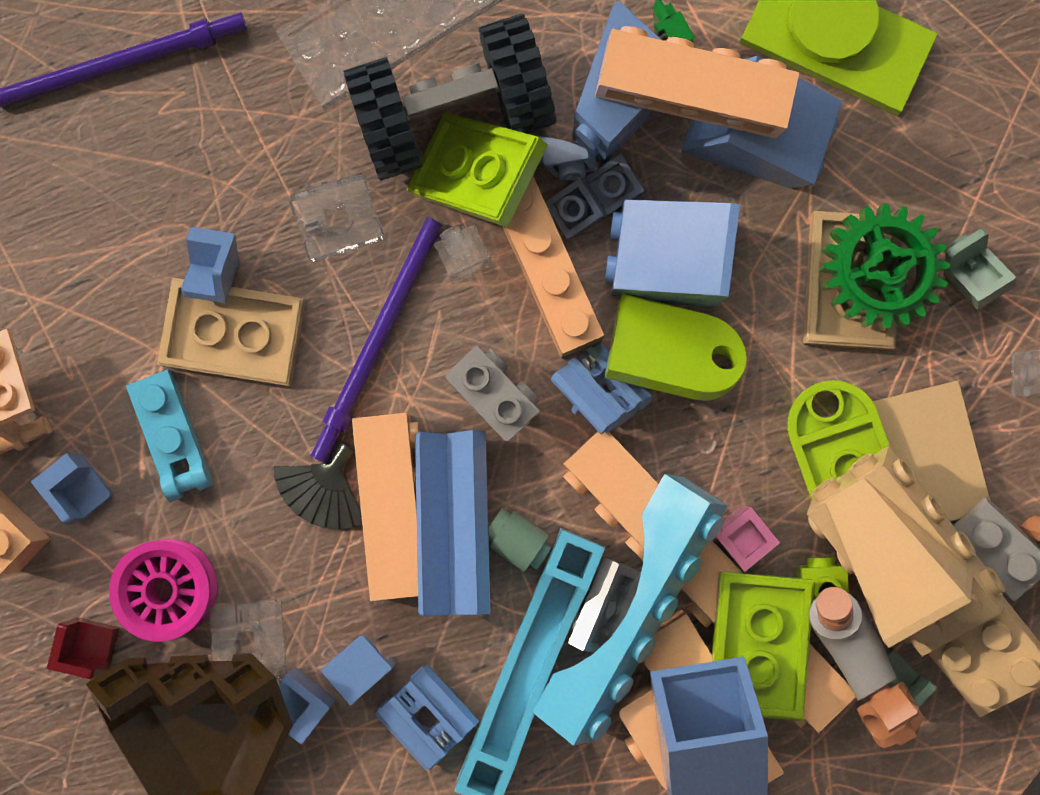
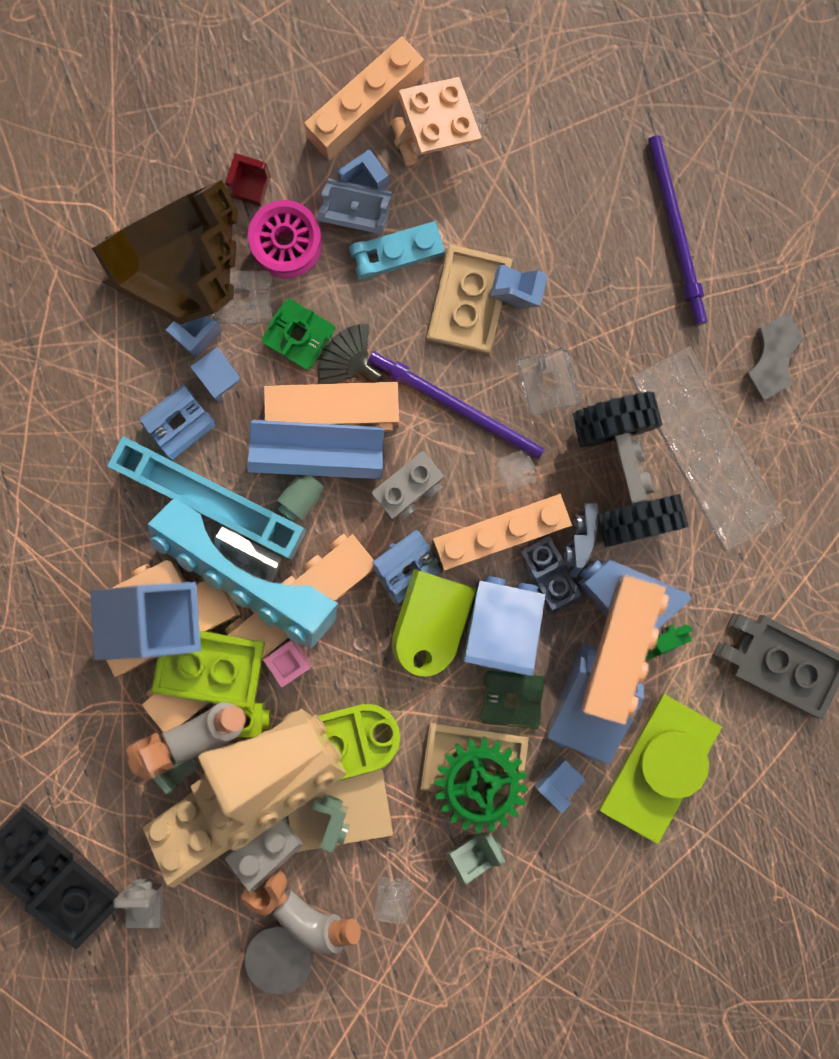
camera: 85 degrees right, 0 degrees up
(112, 496) = (355, 206): none -> sand blue hinge
(269, 564) = (313, 342): none -> green piece
(477, 168) = (576, 486): lime tile -> none
(785, 219) = (500, 683): none -> clear green piece
(870, 167) = (560, 783): none -> medium blue panel
(960, 455) = (336, 829): none -> sand green bracket

